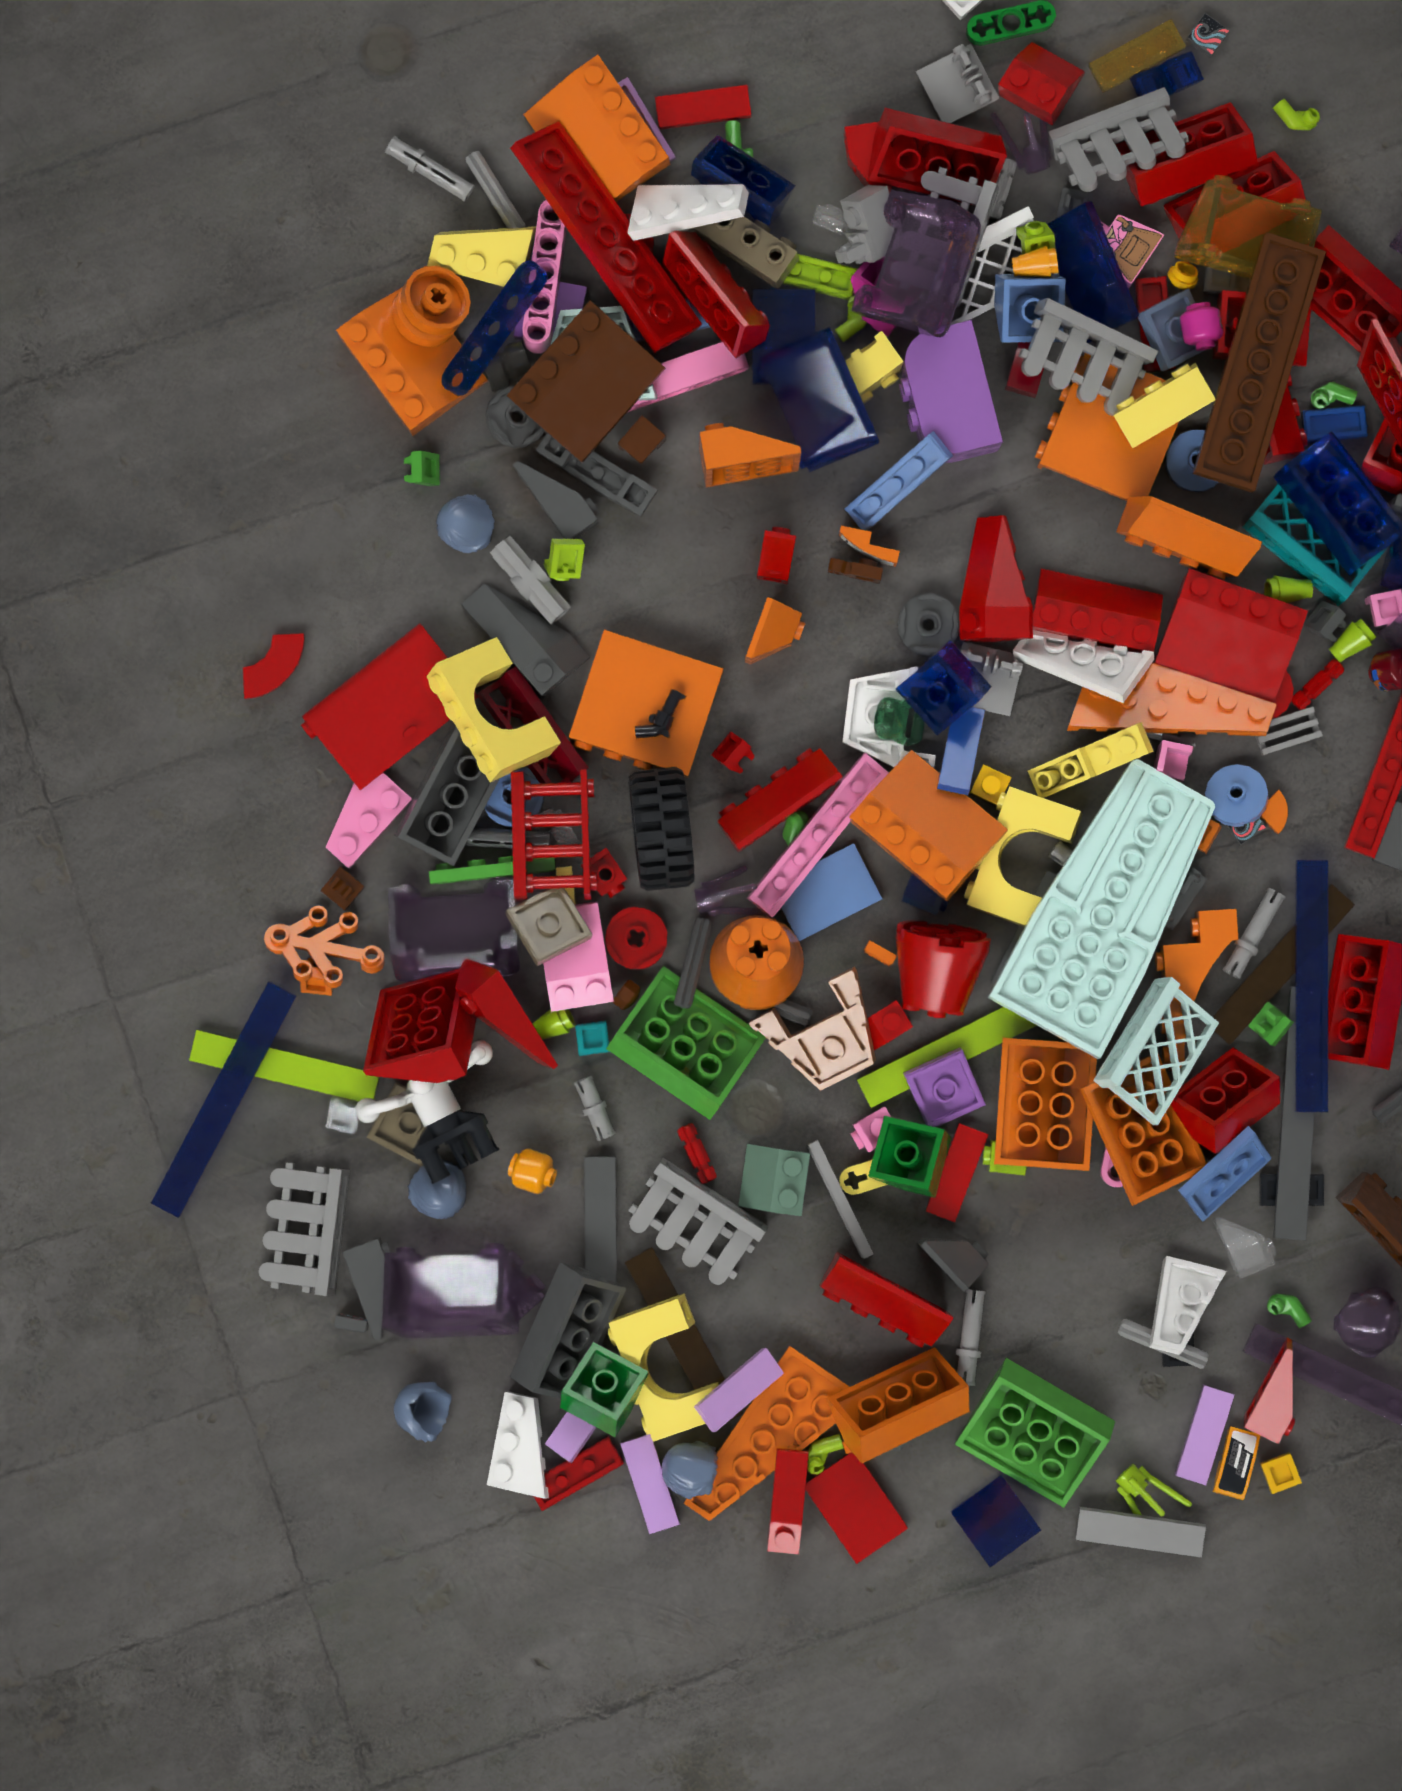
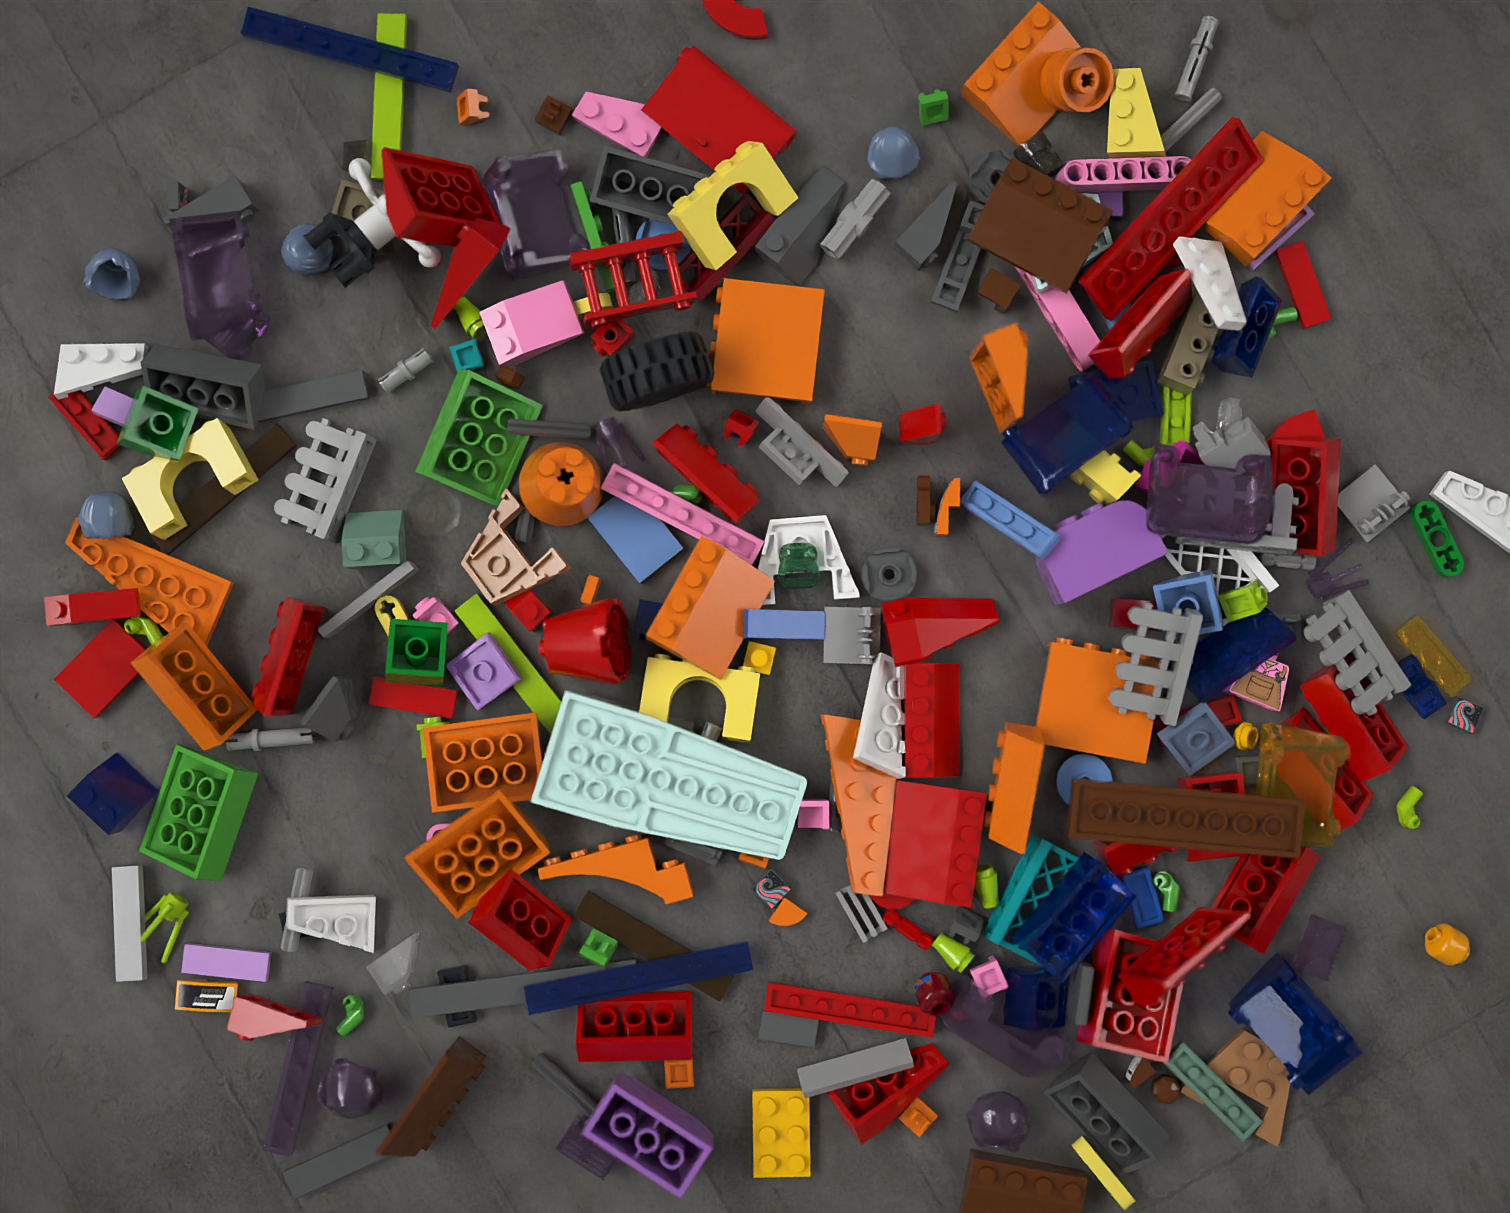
camera: 80 degrees right, 0 degrees up
(320, 946) = (498, 103): orange plant -> none
(325, 1246) = (257, 160): light grey fence -> none
(491, 343) = (1078, 146): clear blue beam -> none
(532, 1171) = (339, 326): light orange head -> none
(548, 924) = (552, 291): dark tan tile -> none
(565, 559) = (879, 243): lime bracket -> none
(649, 1483) = (100, 478): lavender tile -> none
(653, 943) = (562, 360): red plate -> none
(662, 719) = (755, 355): black piece -> none
(696, 1153) = (384, 467): red axle -> none
(738, 1389) = (178, 542): lavender tile -> none
(770, 698) = (795, 449): none -> light grey bracket
(943, 687) = (835, 597): clear blue slope -> none
(1036, 263) = (1230, 601): light orange cone -> none
(1040, 82) = (1389, 574): red slope -> none
(1090, 760) = (797, 741): light yellow slope -> none
(1134, 1039) = (554, 829): light aqua fence -> none
(1163, 404) = (1128, 740): light yellow wedge -> none
(1201, 325) = (1206, 760): dark pink head -> none
(1225, 1174) = (455, 934): medium blue tile -> none
(1238, 810) = (784, 887): medium blue plate -> none
(1253, 933) = (675, 917): light grey pin -> none
(1280, 1473) = (204, 1036): yellow plate -> none

